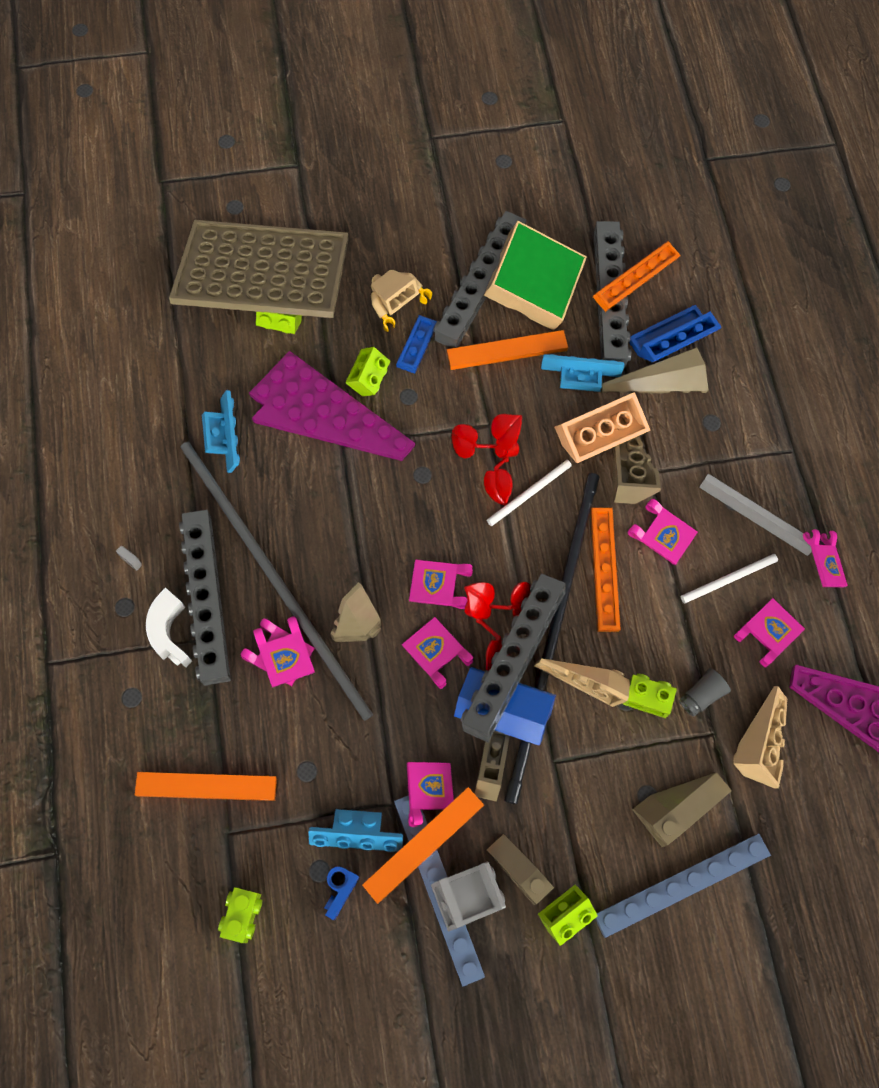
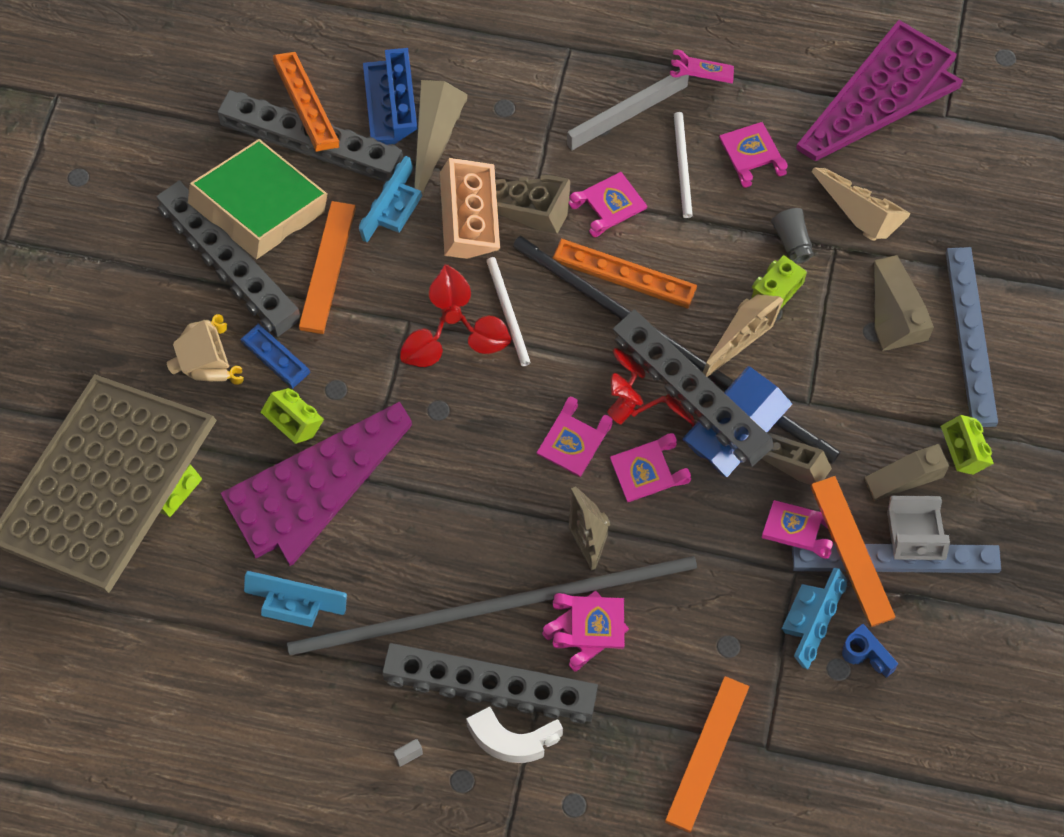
camera: 65 degrees left, 5 degrees down
(240, 915) = (860, 757): lime brick -> none

